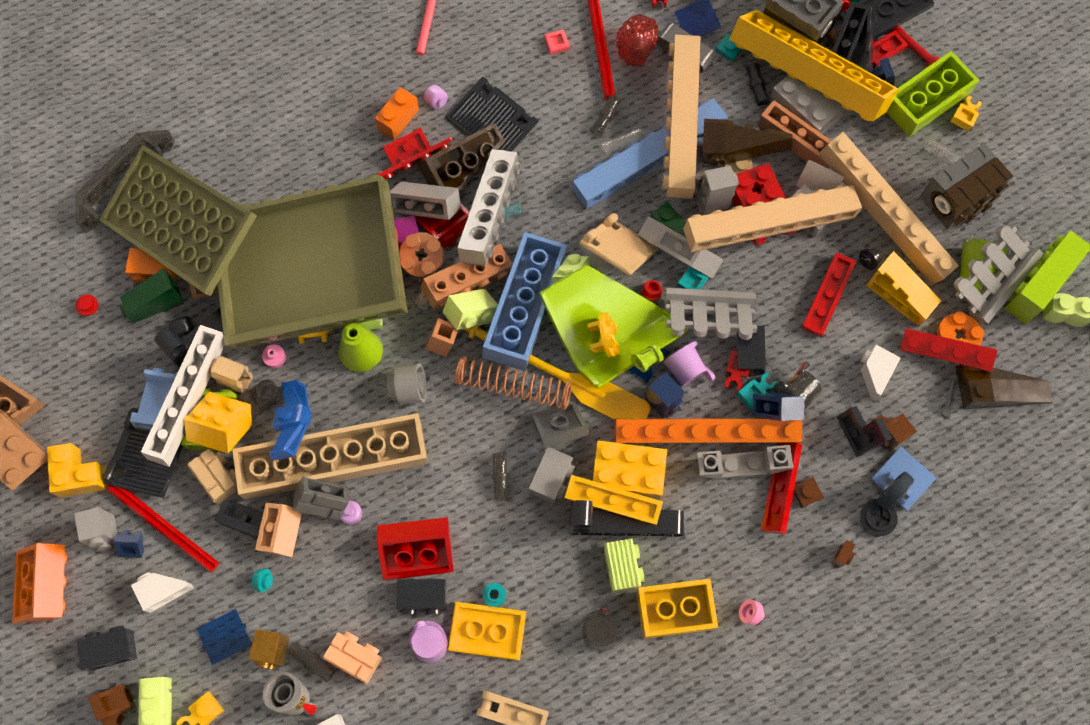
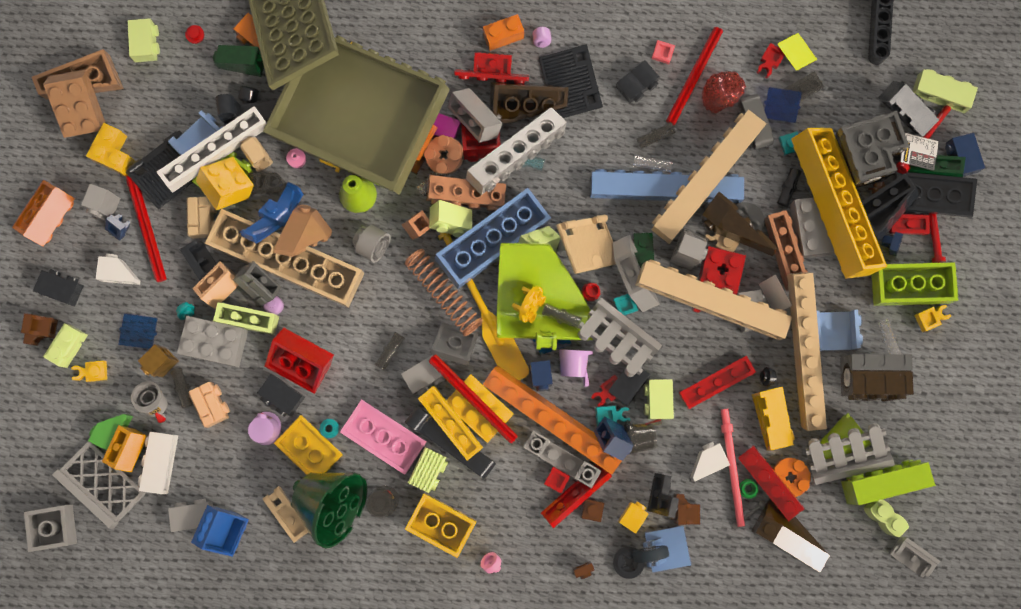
camera: 35 degrees right, 10 degrees up
(35, 343) = (142, 40): none -> yellowish green brick
(312, 590) = (212, 341): none -> light grey brick
(332, 414) = (302, 229): none -> medium nougat wedge
(332, 542) = (246, 318): none -> yellowish green brick
(550, 666) = (329, 504): none -> dark green cone
(554, 80) = (637, 82): none -> black brick
(555, 564) = (383, 437): none -> bright pink plate
(619, 460) = (473, 399): none -> red axle
(642, 329) = (561, 316): none -> clear smoke pin
(752, 486) = (557, 480): none -> red plate
(789, 345) = (659, 399): none -> yellowish green brick
(850, 470) = (633, 516): none -> yellow brick
(869, 330) = (727, 429): none -> coral bar
(903, 173) = (839, 330): none -> light blue panel
(935, 366) = (754, 488): none -> green plate

